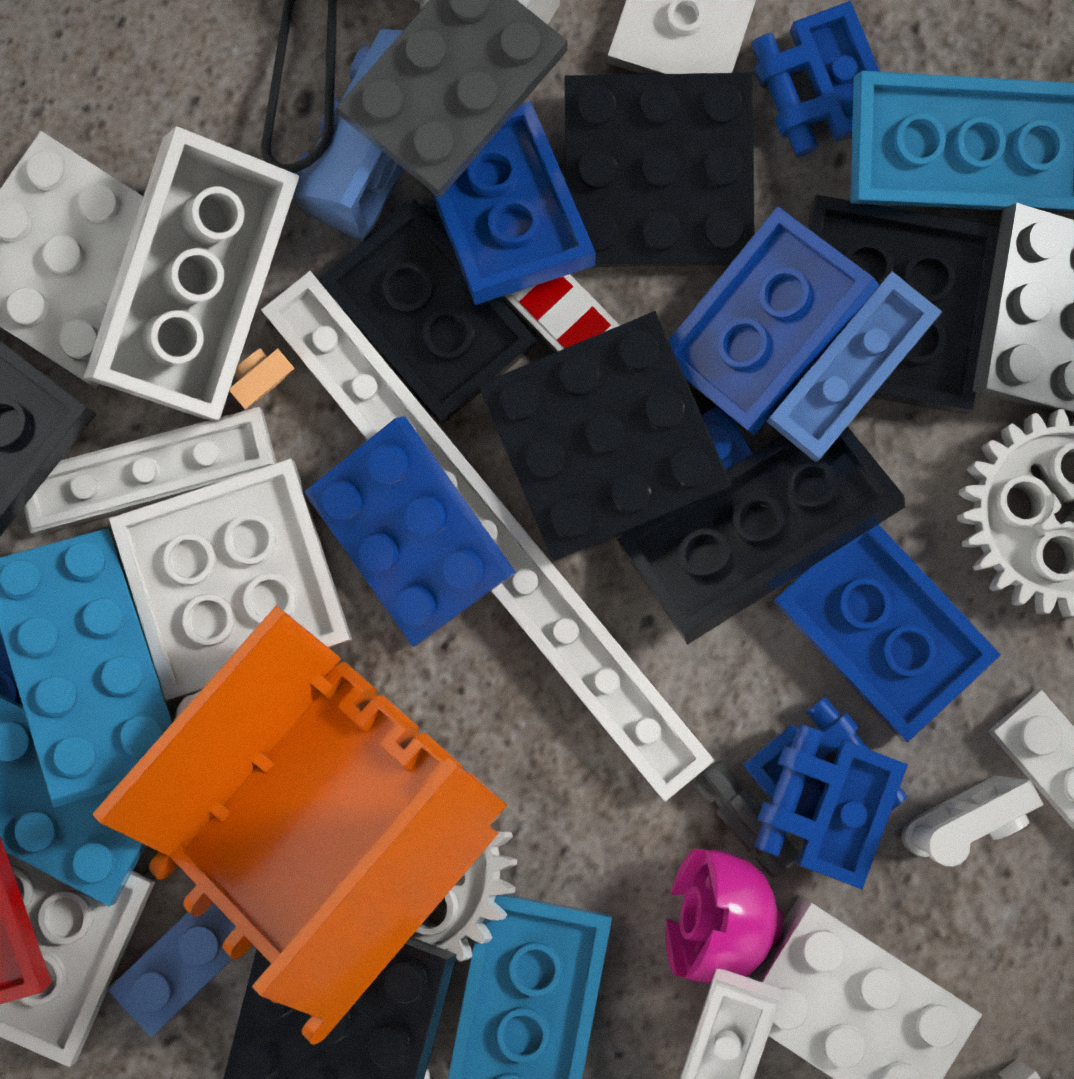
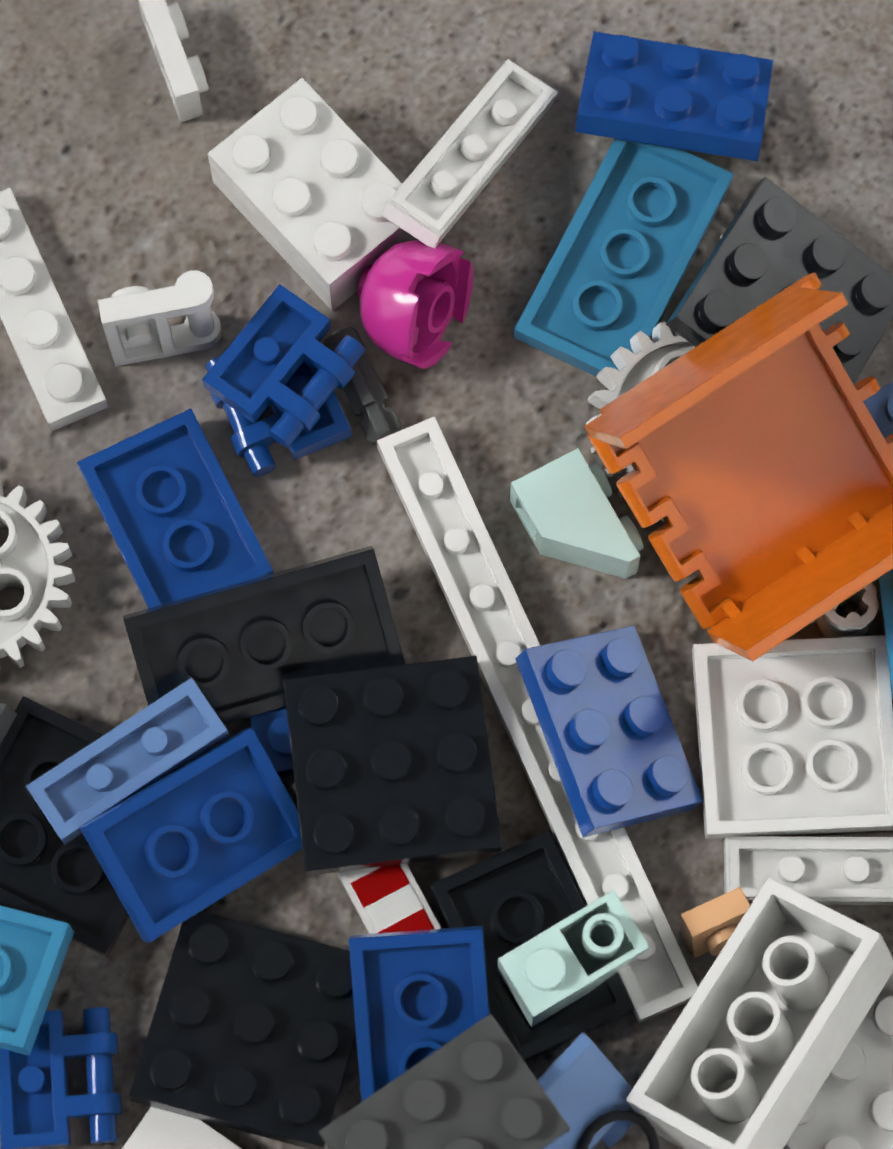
camera: 165 degrees left, 10 degrees down
(384, 288) = (571, 958): none -> light aqua slope
(500, 736) = (573, 520): none -> light aqua slope

